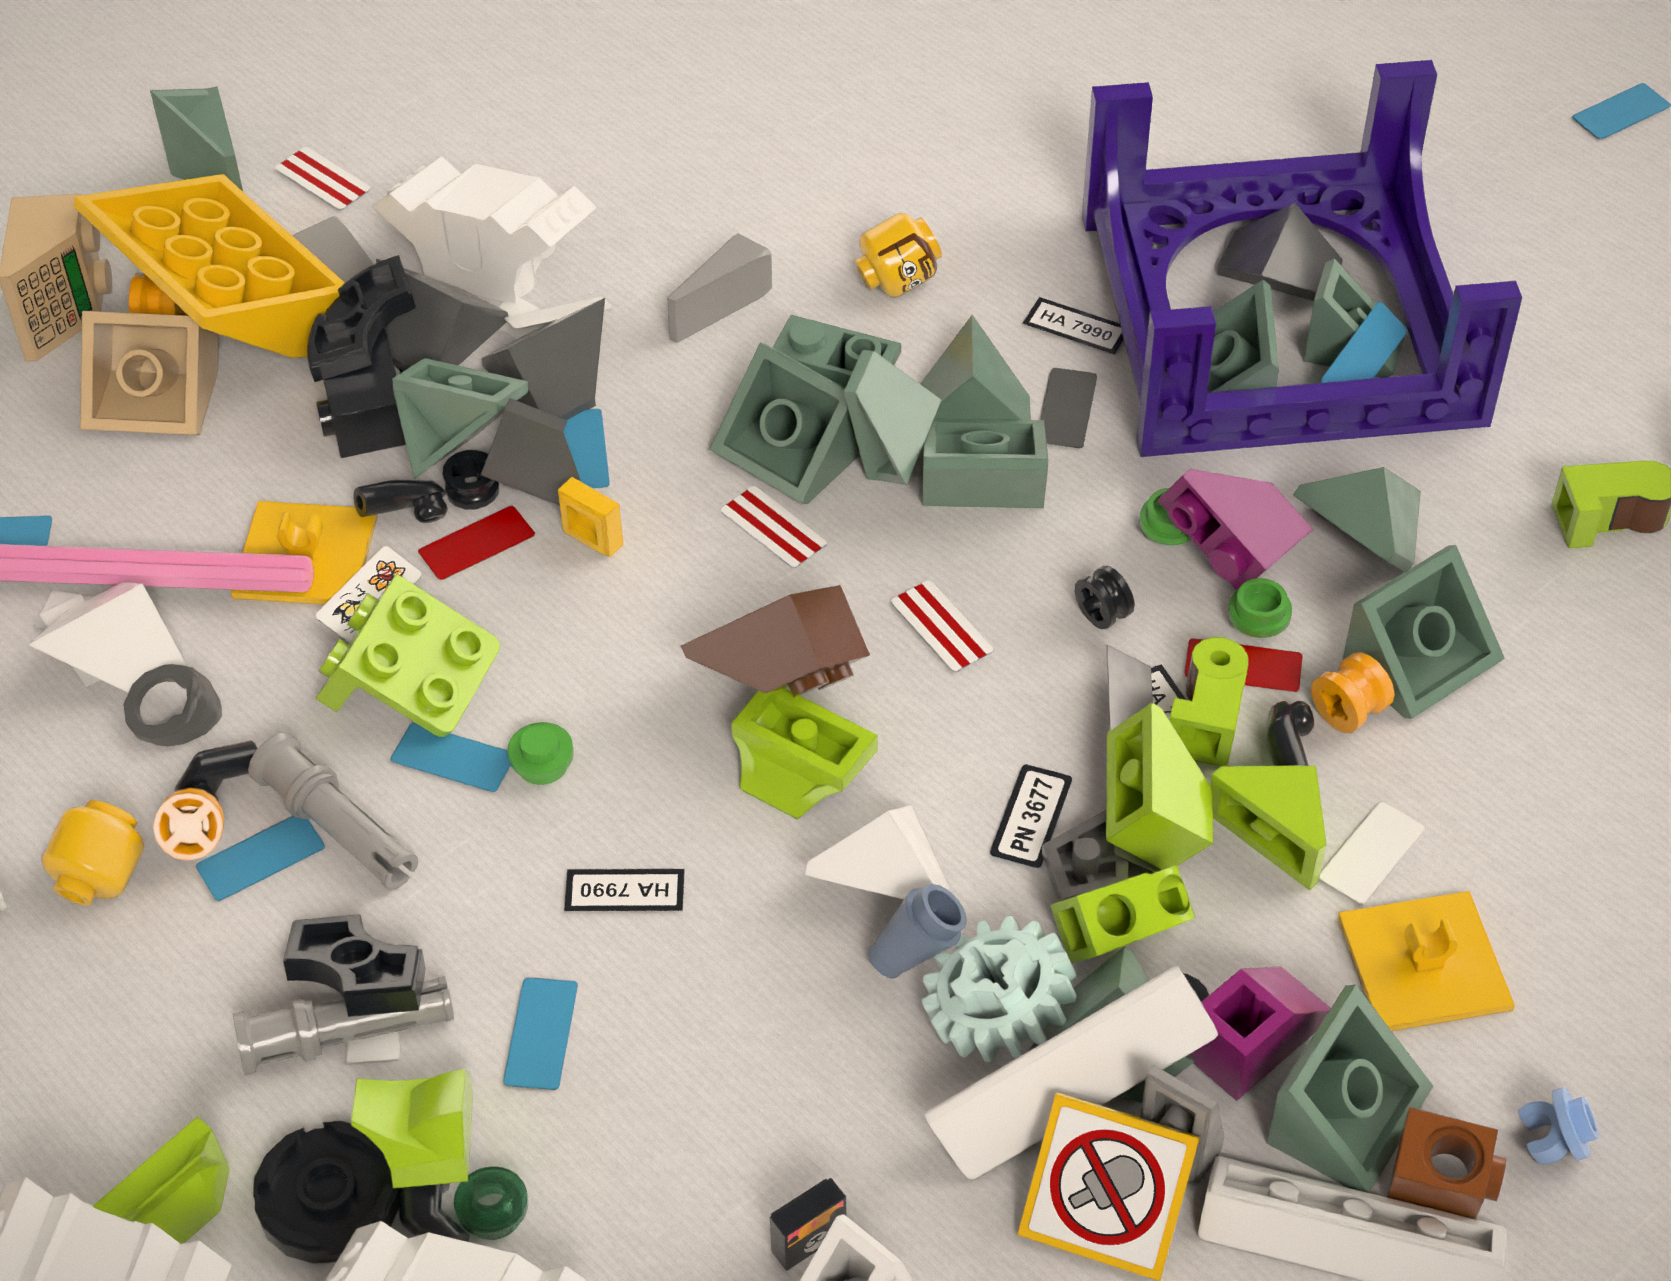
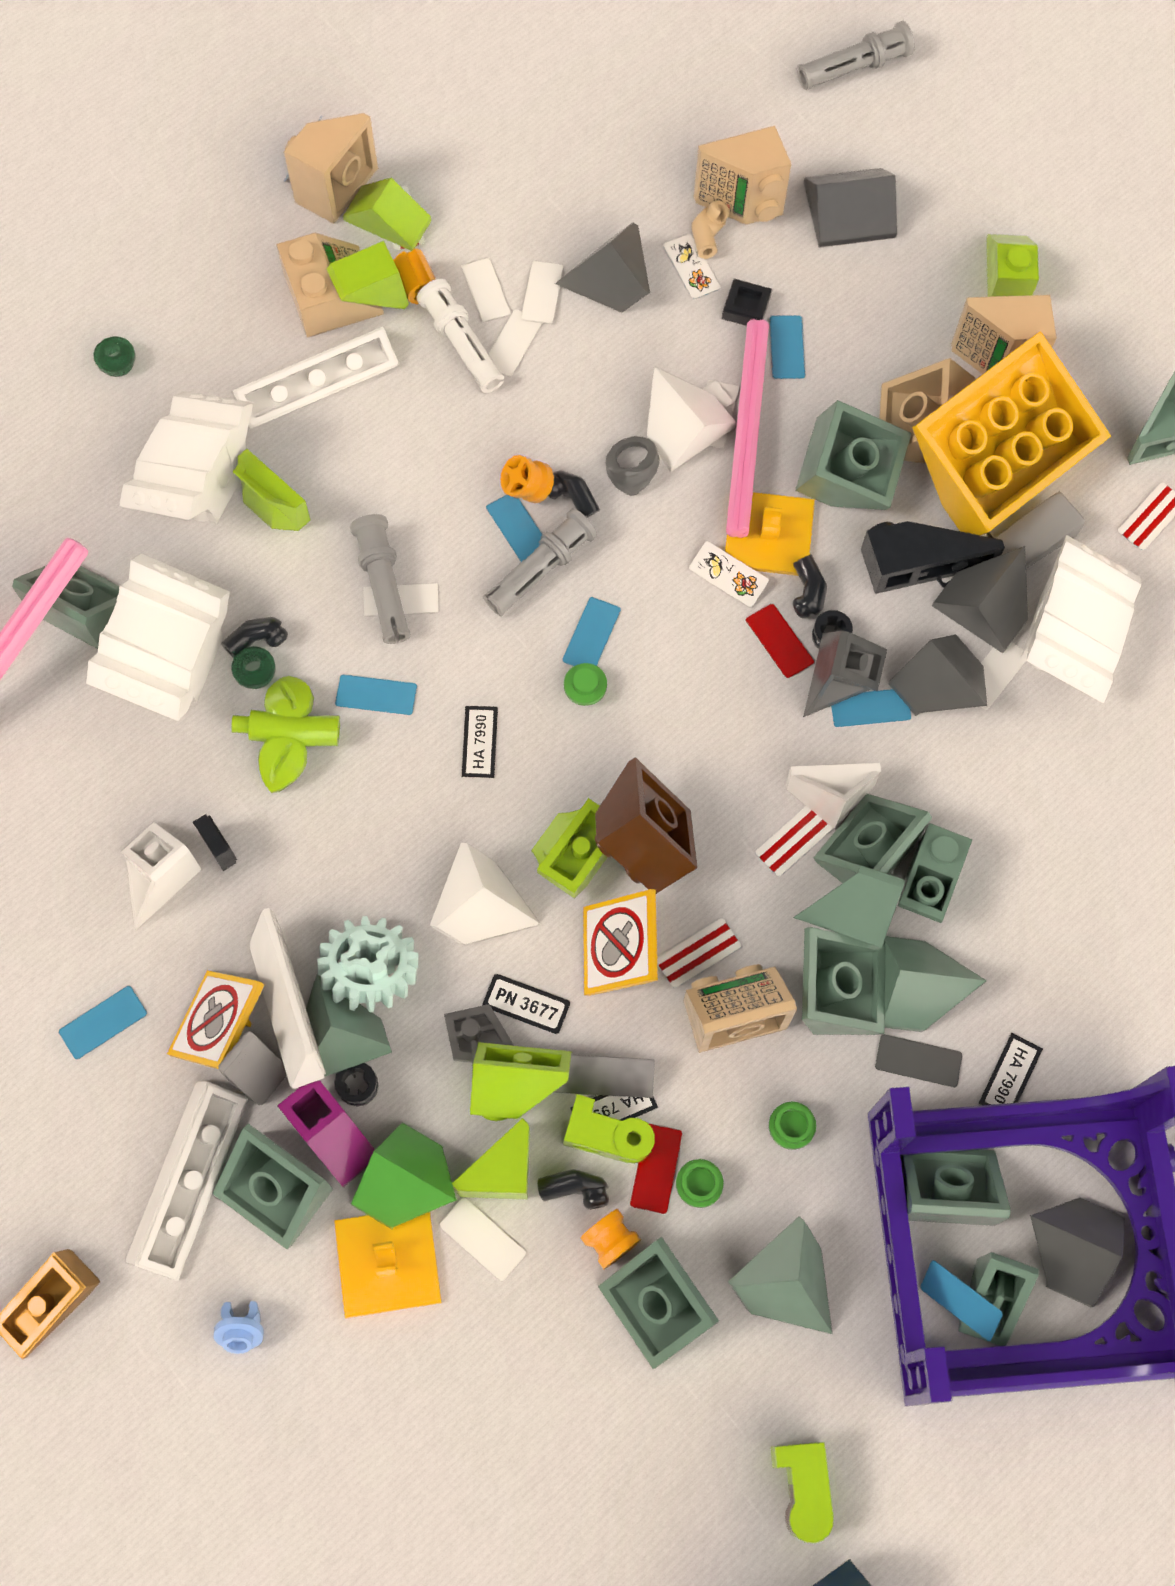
camera: 90 degrees right, 20 degrees up
(92, 852) = (511, 429): yellow head -> none
(210, 443) = (853, 459): none -> sand green slope
(322, 1189) = (274, 581): black tile -> none
(348, 329) = (963, 538): black tile -> none
(362, 969) = (400, 590): black tile -> none
(410, 657) = (658, 599): lime bracket -> none
(418, 1126) = (297, 620): lime slope -> none
(447, 407) = (878, 604): sand green slope -> none
(550, 314) = (1003, 684): white sticker -> none
(590, 517) = (786, 708): yellow tile -> none
(607, 1138) = (286, 731): none -> lime plant
(718, 460) = (832, 789): none -> white slope
(719, 287) = (1030, 798): light grey slope -> none
(898, 255) = (1068, 932): yellow head -> none
(919, 929) = (410, 915): sand blue cone -> none
(946, 683) = (620, 943): none -> piece
(1029, 552) = (738, 1007): none -> tan slope
(1104, 597) = (708, 1065): black bush -> none
(1122, 913) = (421, 1052): lime leg -> none
(1234, 522) = (765, 1171): slope -> none
(1313, 924) = (404, 1179): none -> bright green slope
(1432, 1134) = (199, 1225): dark orange brick -> none

